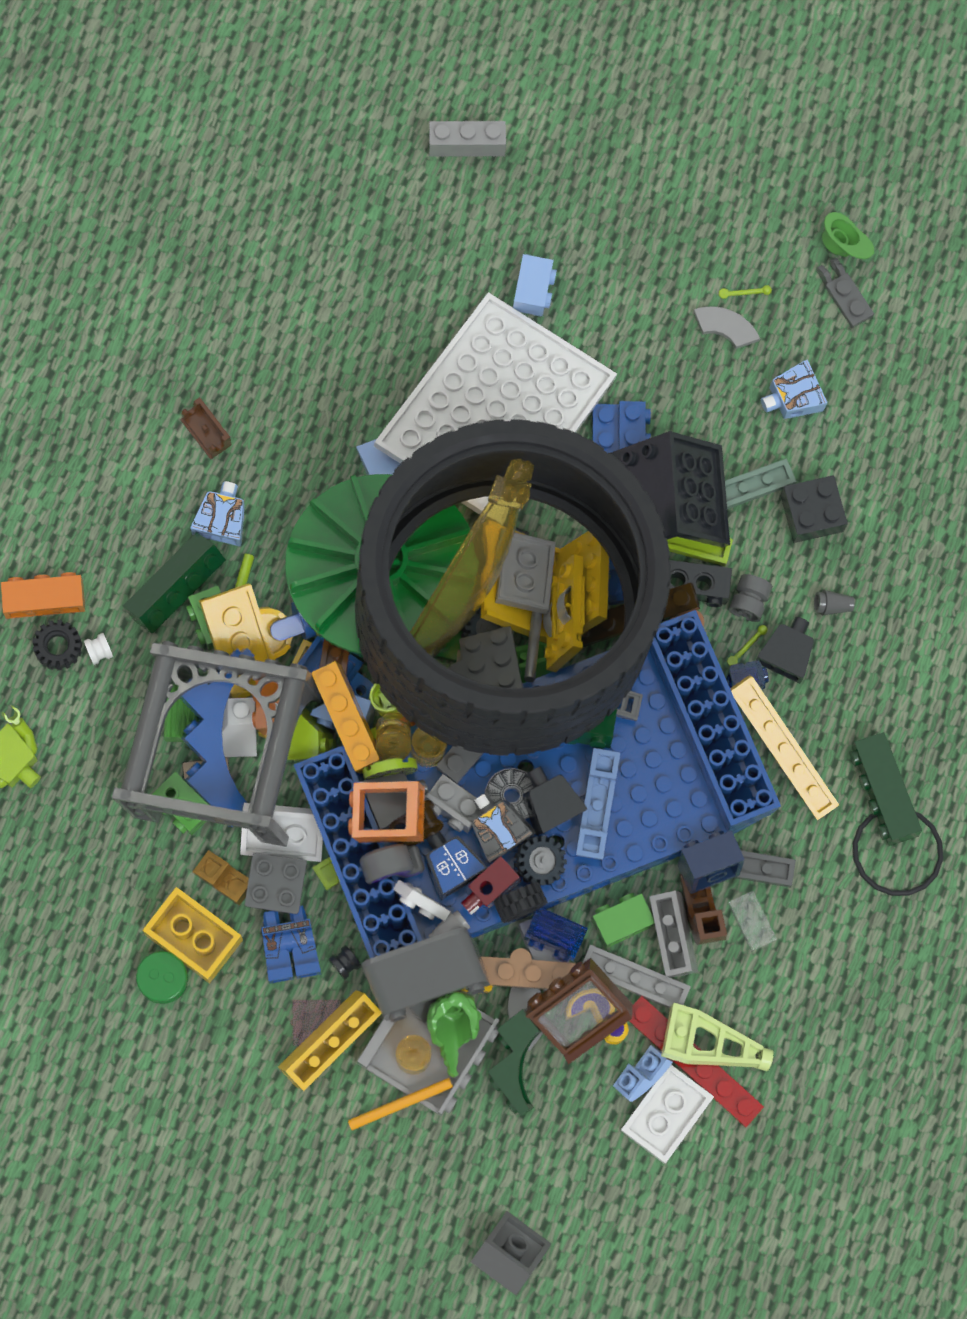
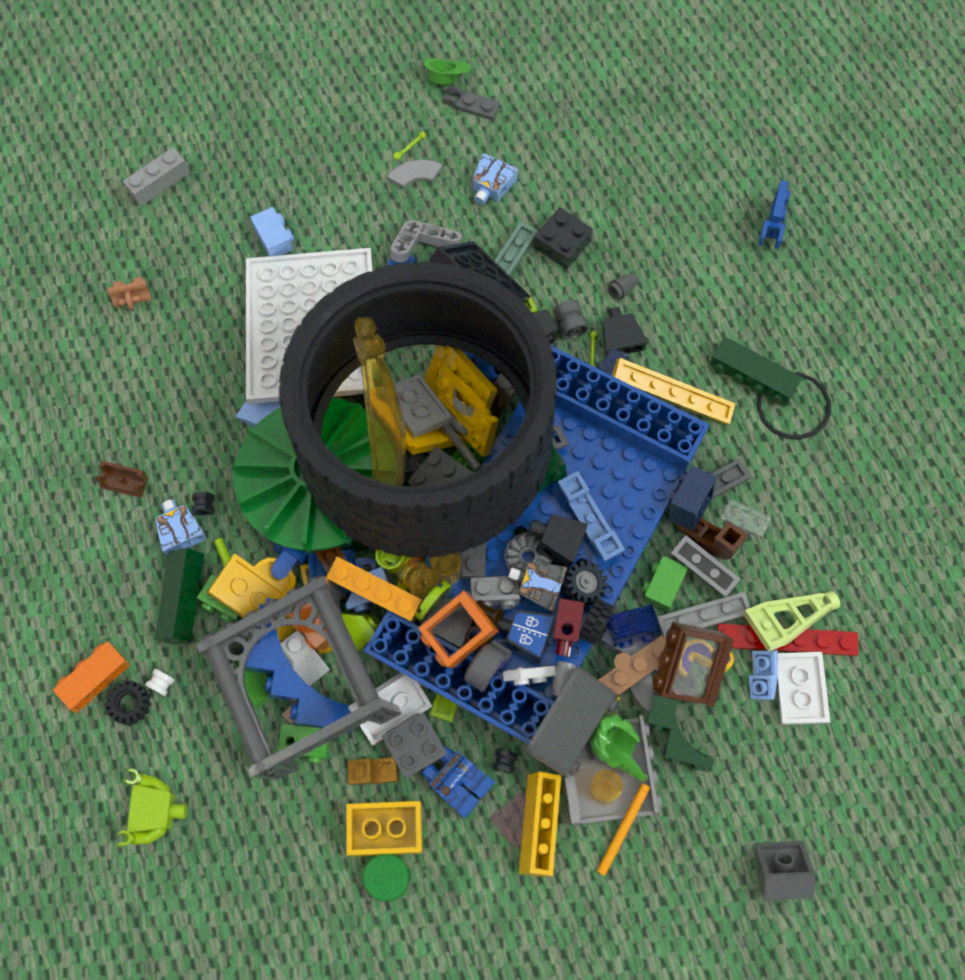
camera: 30 degrees left, 5 degrees down
(261, 510) = (203, 503): none -> black wheel
(350, 245) = (129, 294): none -> nougat hips
(676, 396) = (420, 233): none -> light grey beam

